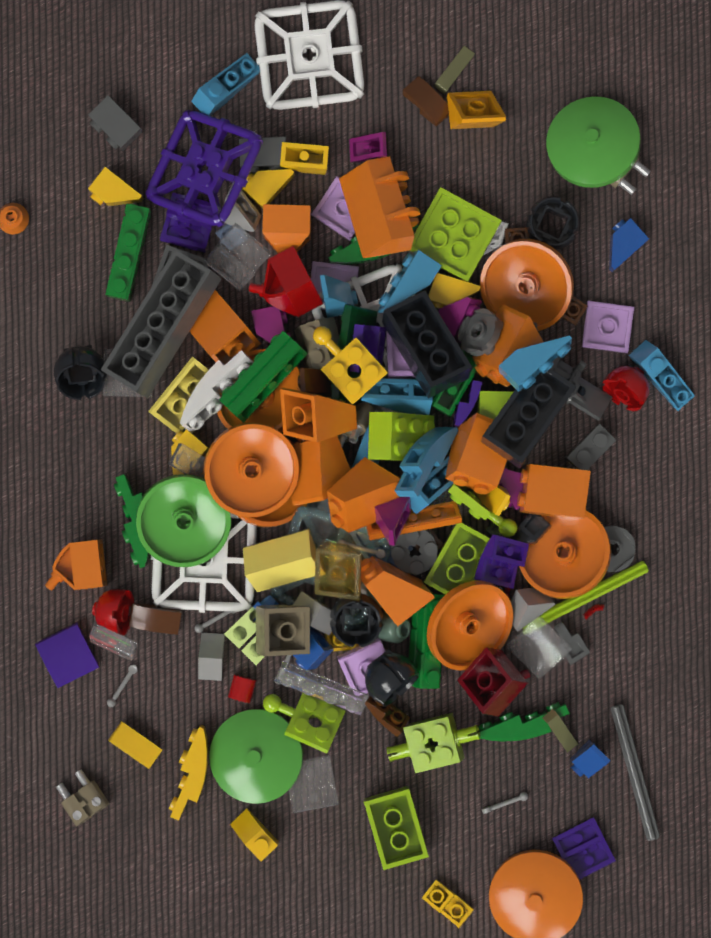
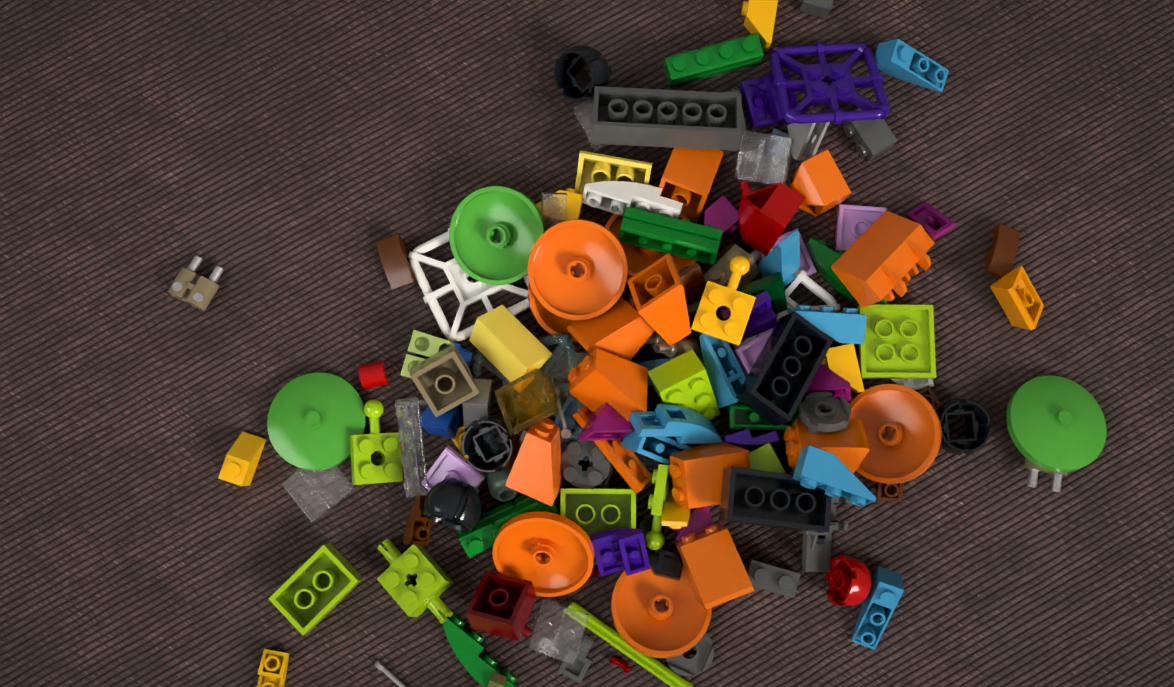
camera: 65 degrees right, 5 degrees down
(67, 655) = (320, 201): dark purple slope -> none
(80, 566) = (407, 167): orange piece -> none
(113, 610) = (382, 219): red cylinder -> none
(113, 641) = (353, 233): clear slope -> none
(123, 488) = (497, 173): green slope -> none
(132, 670) = (340, 267): light grey hinge -> none
(135, 745) = (270, 305): yellow slope -> none
(195, 764) = (278, 370): yellow slope -> none
(200, 627) = (409, 306): light grey hinge -> none
(211, 656) = (388, 330): light grey slope -> none
(267, 184) = (845, 149): yellow slope -> none
(304, 157) = (888, 168): yellow slope -> none
(320, 66) = (976, 139): white plate -> none
(454, 69) = (1042, 261): olive piece -> none
(528, 605) = (591, 599): light grey slope -> none
(607, 327) = (891, 531): lavender tile -> none
(625, 242) = (980, 504): blue slope -> none

